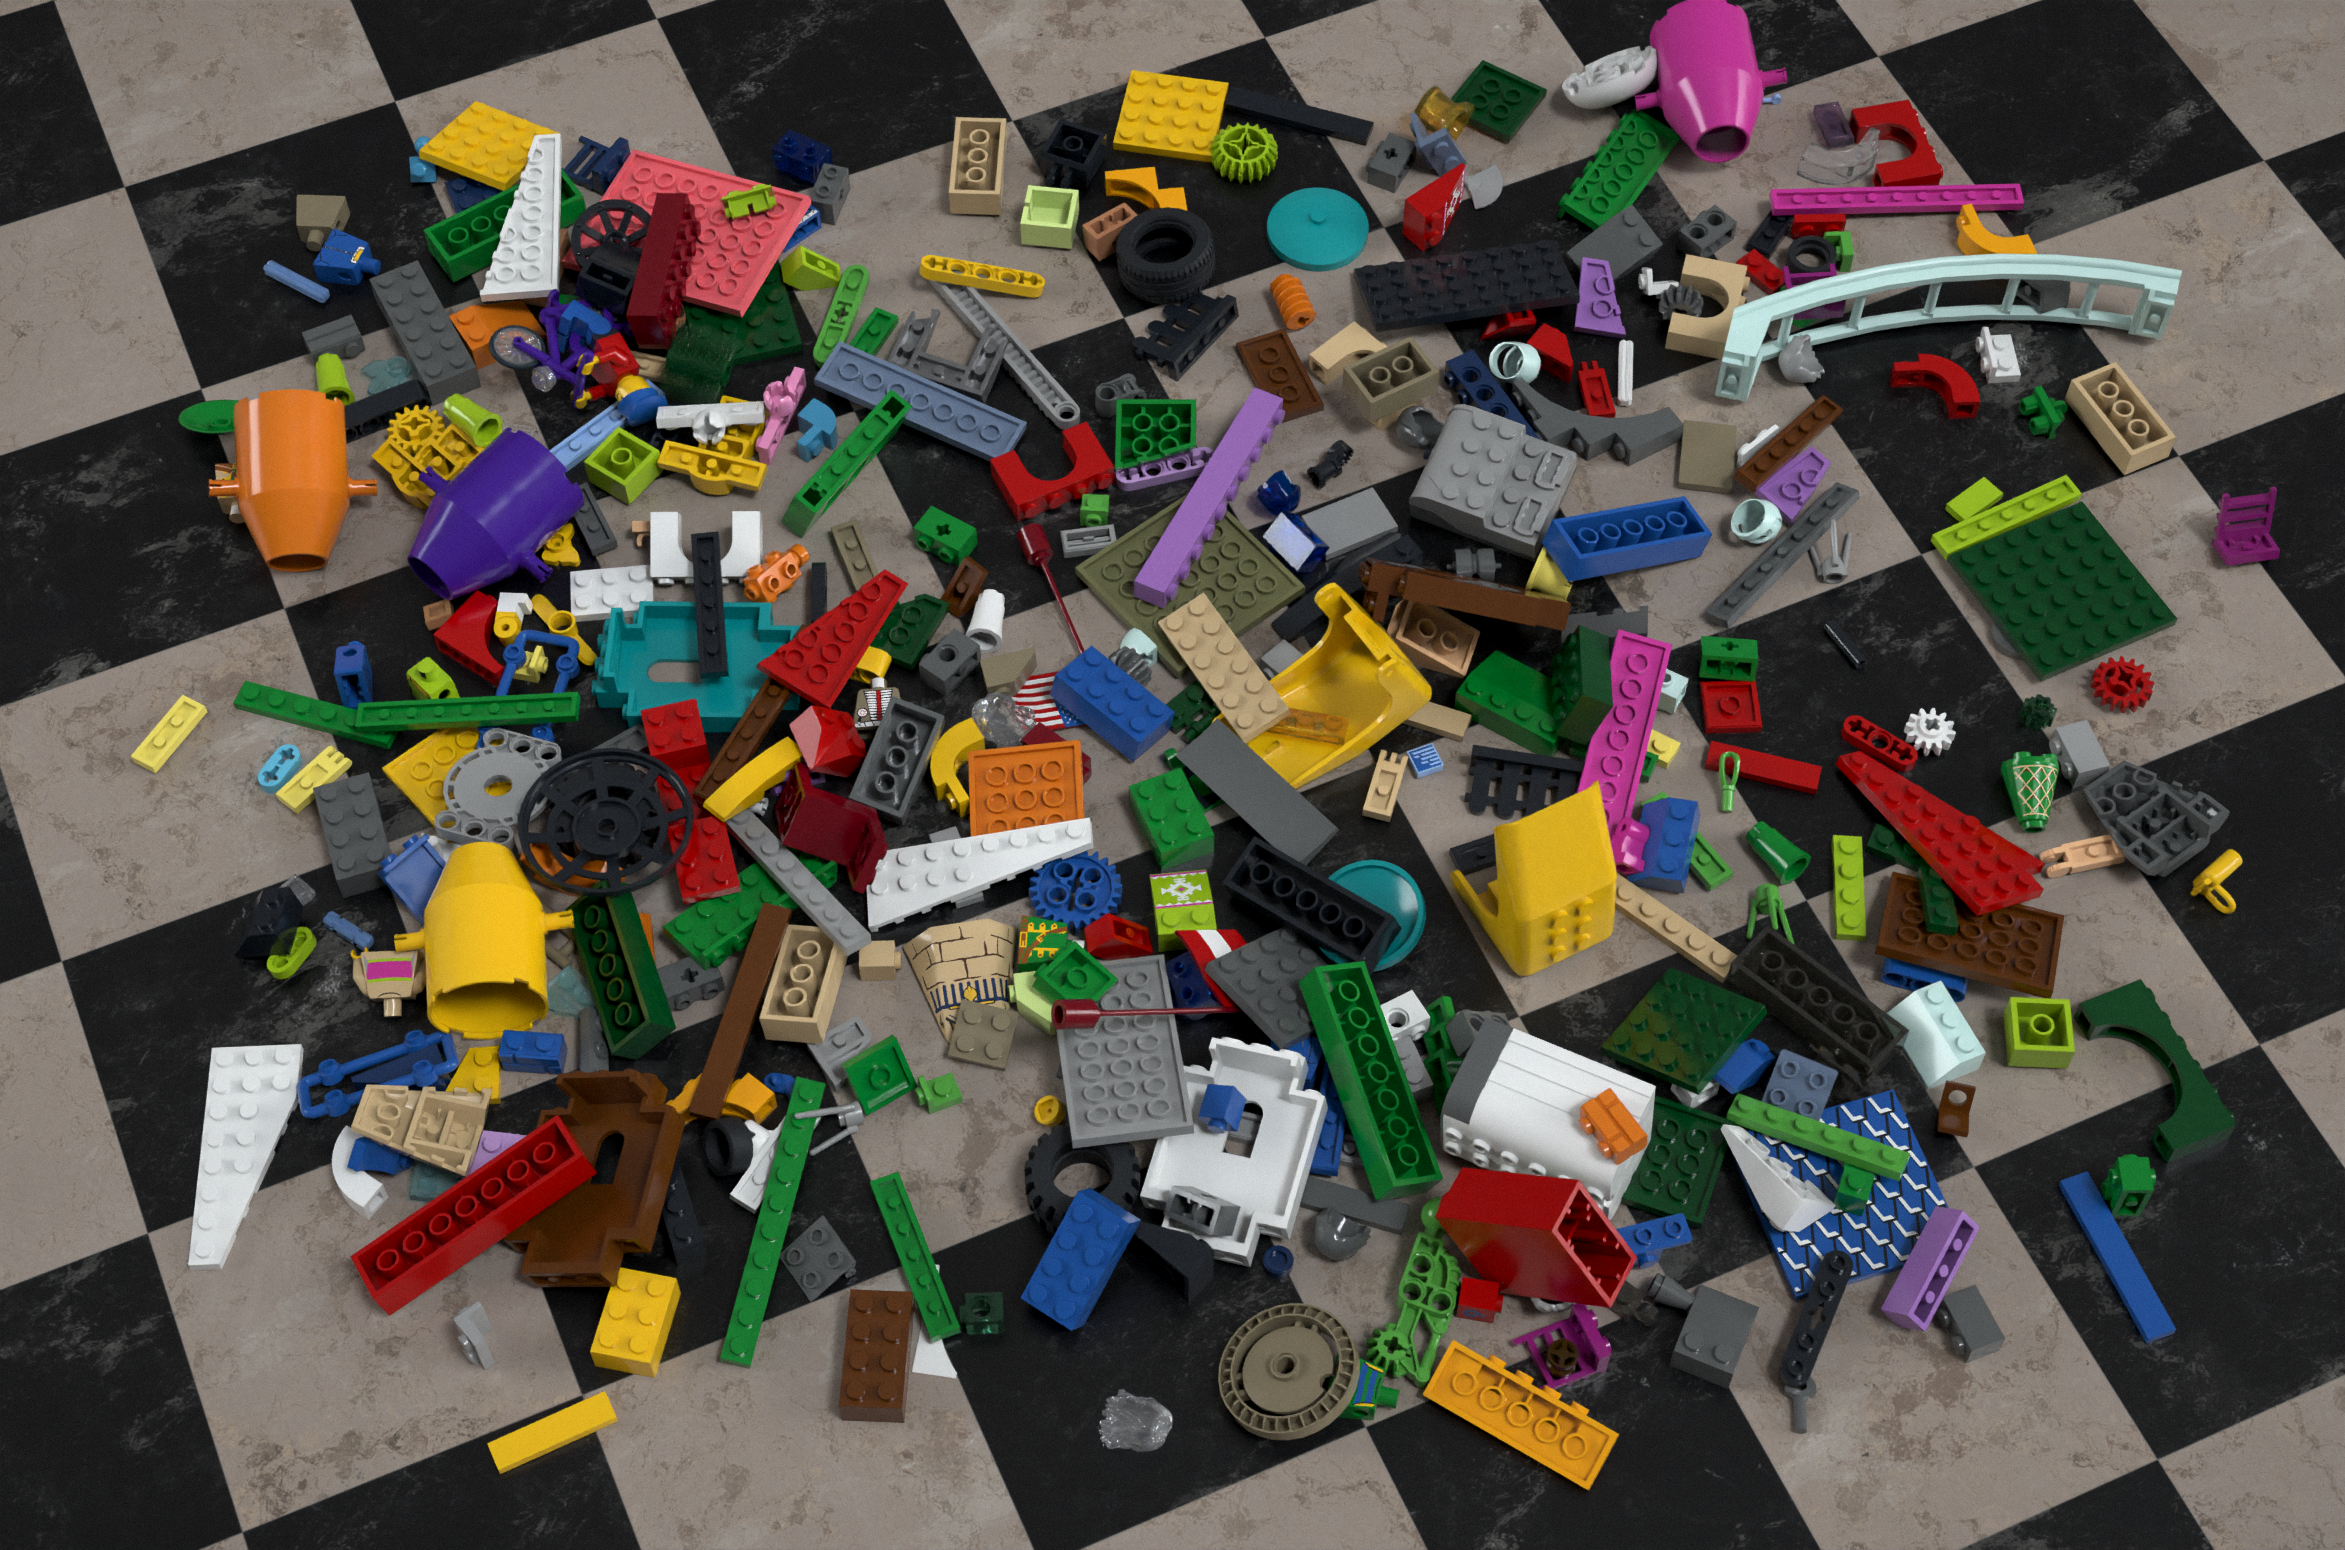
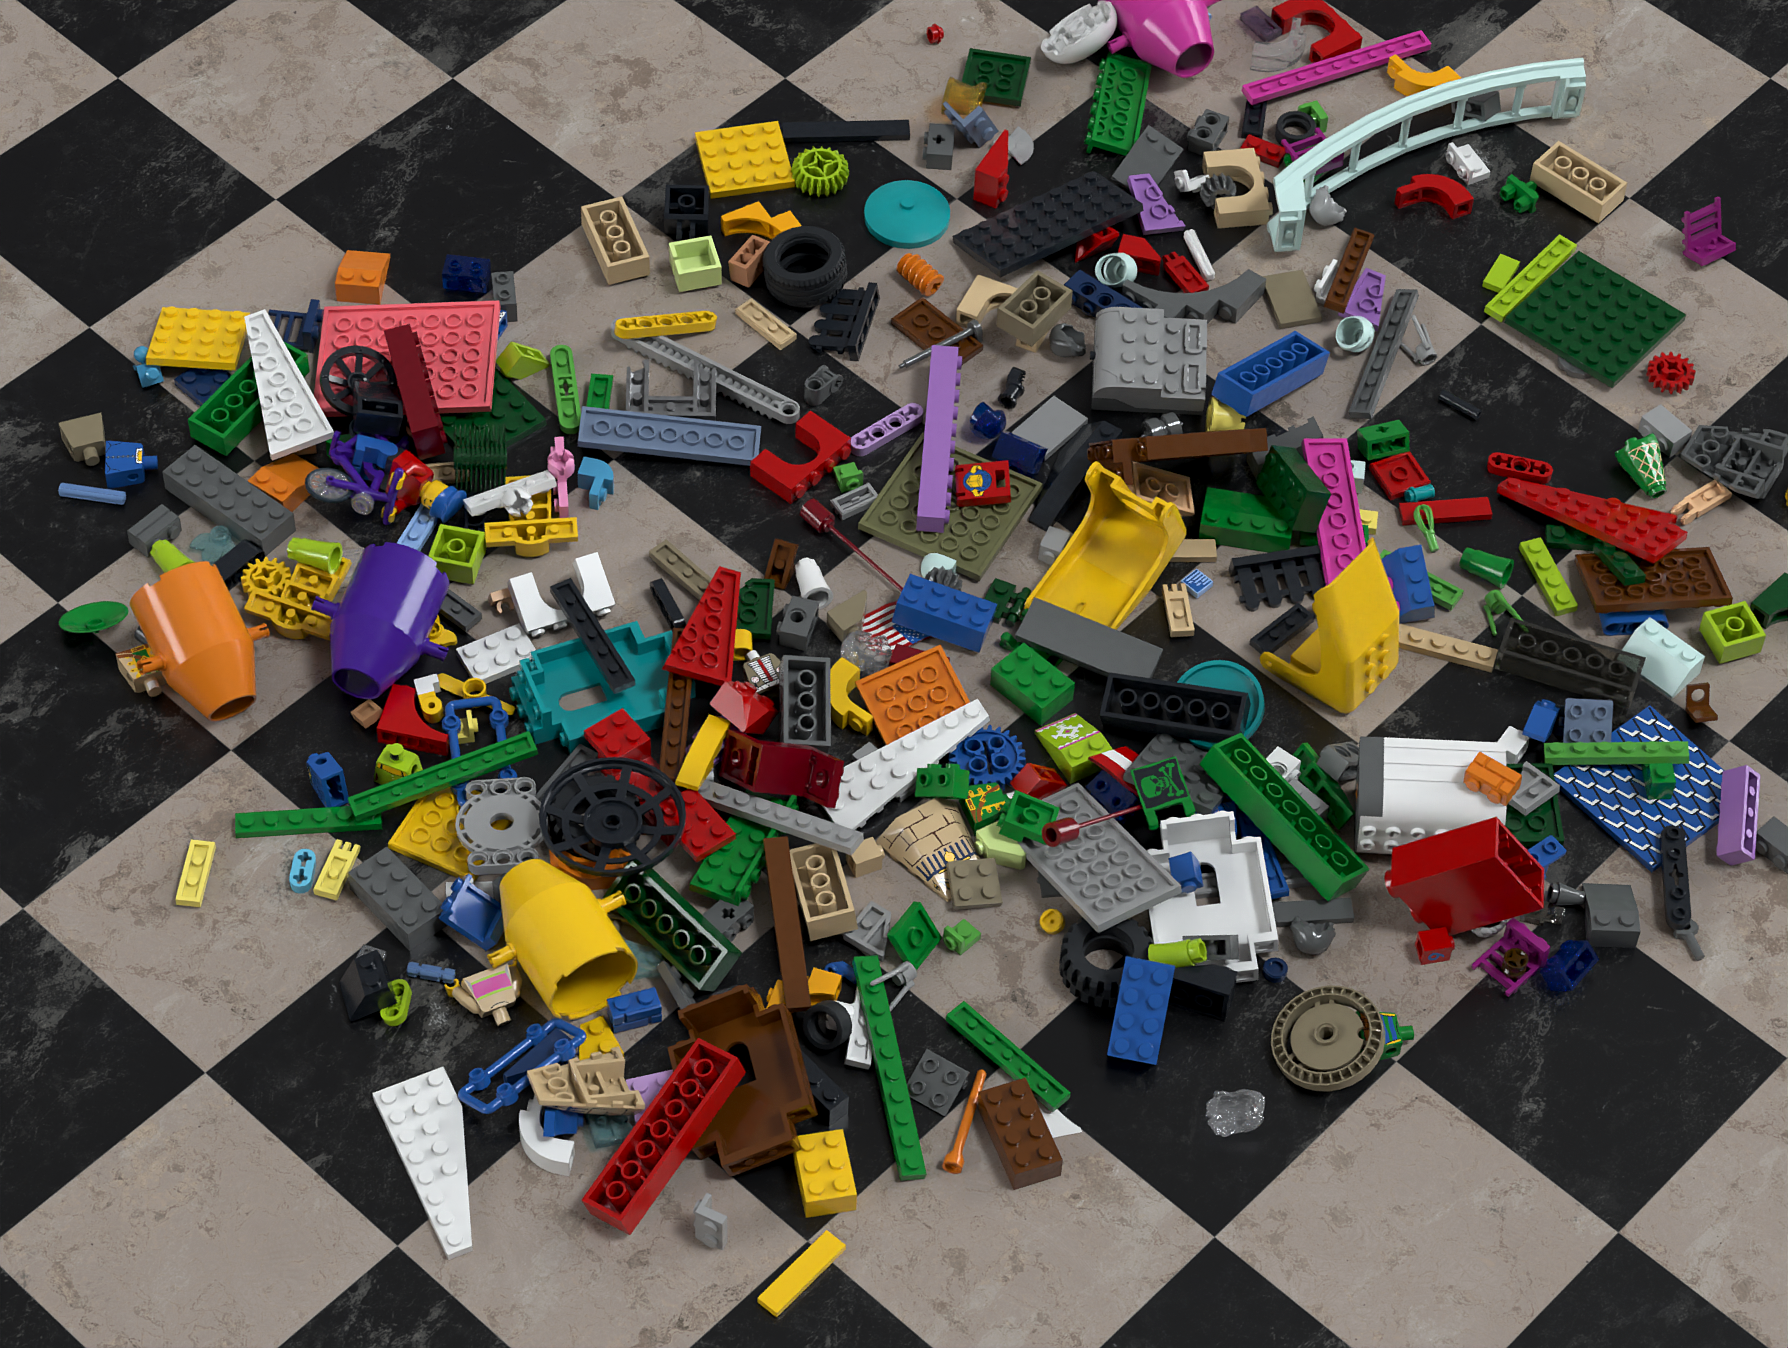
camera: 25 degrees left, 5 degrees down
(695, 128) = (362, 277): none -> orange slope
(759, 196) = (445, 321): lime hinge -> none
(775, 574) = (626, 599): orange brick -> none
(789, 1360) = (954, 1160): none -> orange piece
(846, 463) = (640, 498): green fence -> none
(945, 536) = (743, 530): green brick -> none
(988, 1324) = (1083, 1068): clear green brick -> none
(1001, 903) = (942, 782): none -> green brick
(1097, 308) = (765, 324): none -> tan tile
(1153, 429) = (865, 401): green wedge -> none
(1154, 1206) = (1179, 953): none -> lime plant
(1224, 668) = (1016, 559): tan plate -> none
(1227, 563) = (977, 483): none -> red container
(1241, 996) = (1161, 787): none -> flag
(1313, 726) = (1097, 583): clear yellow plate -> none
(1319, 383) = (973, 329): none -> dark grey piece
(1433, 1287) = (1396, 947): bright green arm -> none
(1453, 33) = (935, 34): none -> red plate
(1521, 1413) = (1504, 1011): light orange plate -> none
(1627, 1384) = (1569, 965): none -> clear blue brick
(1684, 1030) = (1488, 707): dark green plate -> none
(1689, 1147) = (1534, 790): none -> light grey wing
(1738, 736) = (1420, 493): none -> teal pin
(1779, 1194) = (1616, 802): white wedge -> none
(1816, 224) = (1287, 102): red plate -> none
(1929, 731) = (1552, 447): white gear -> none
(2038, 712) = (1621, 410): clear green gear -> none

